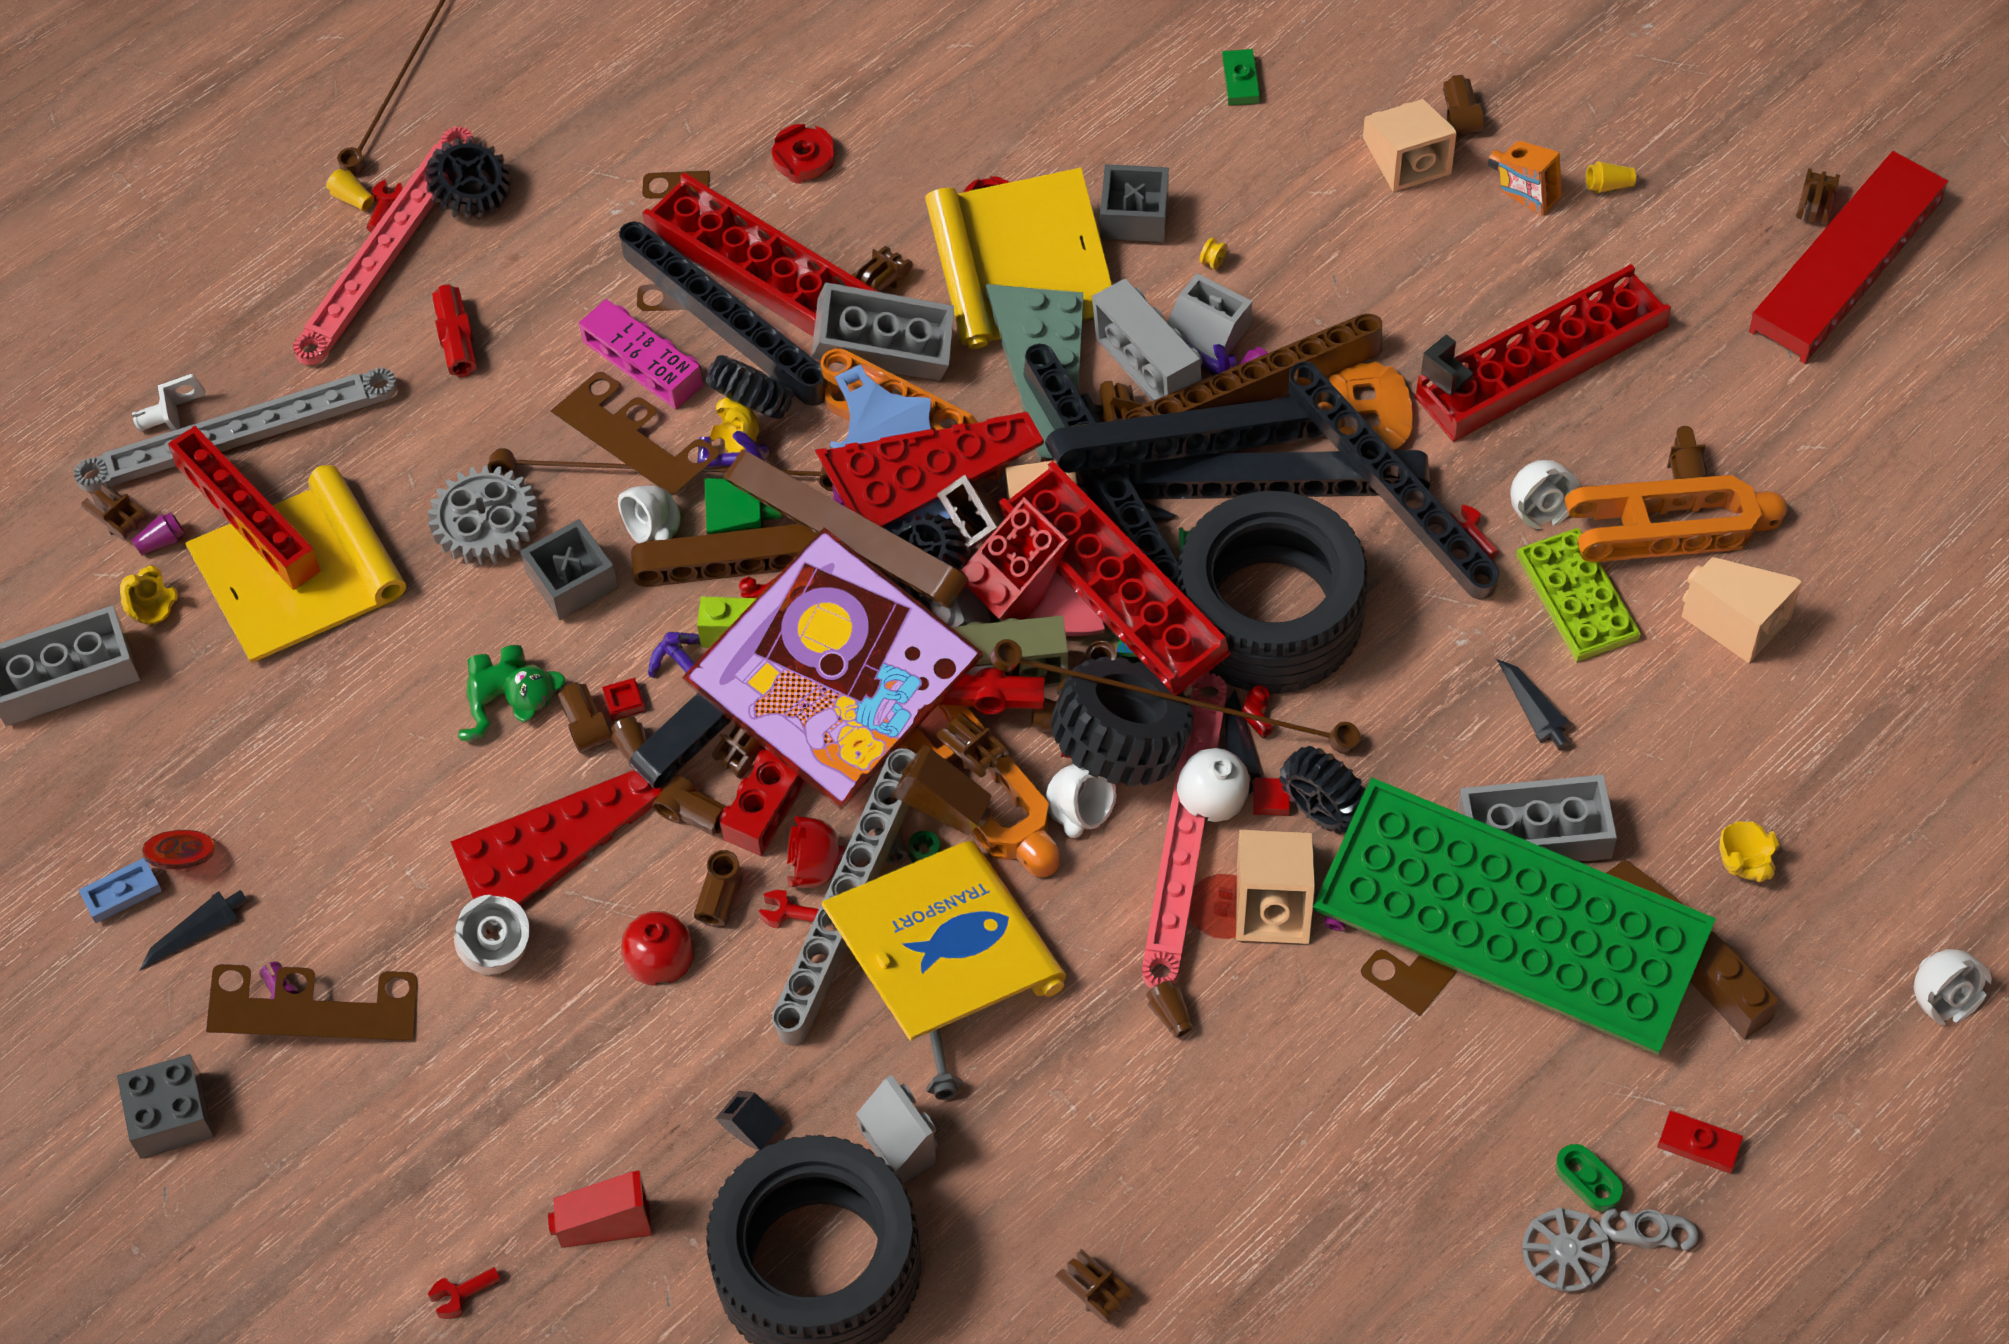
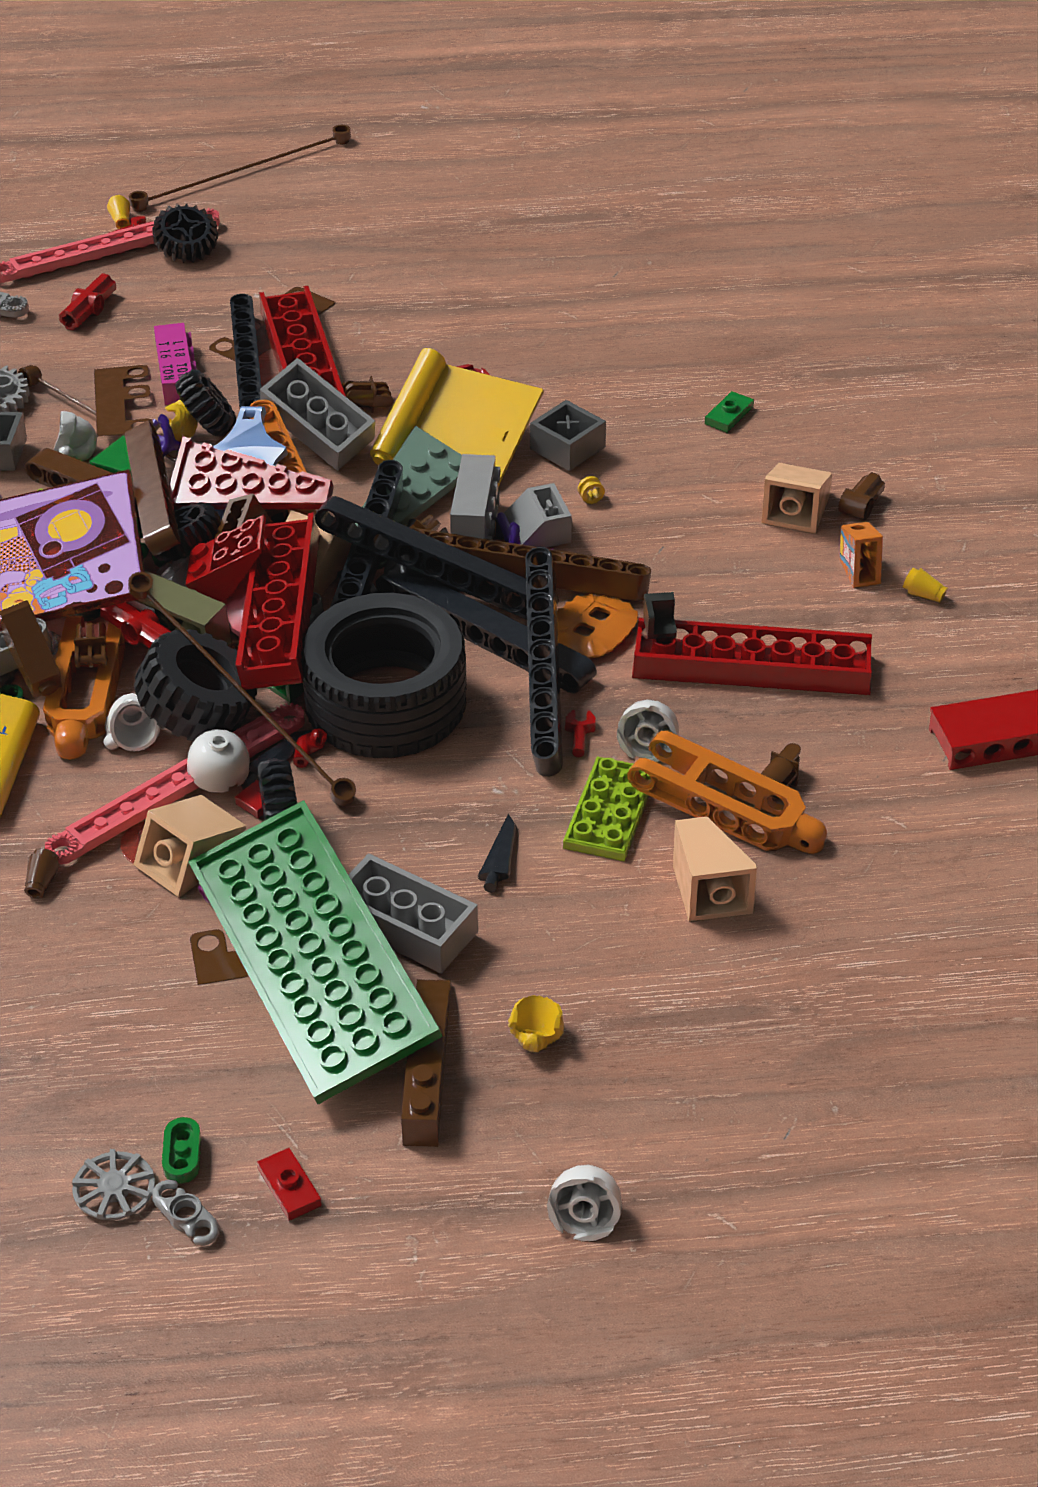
camera: 35 degrees right, 15 degrees down
(806, 166) = (399, 317): red plate -> none

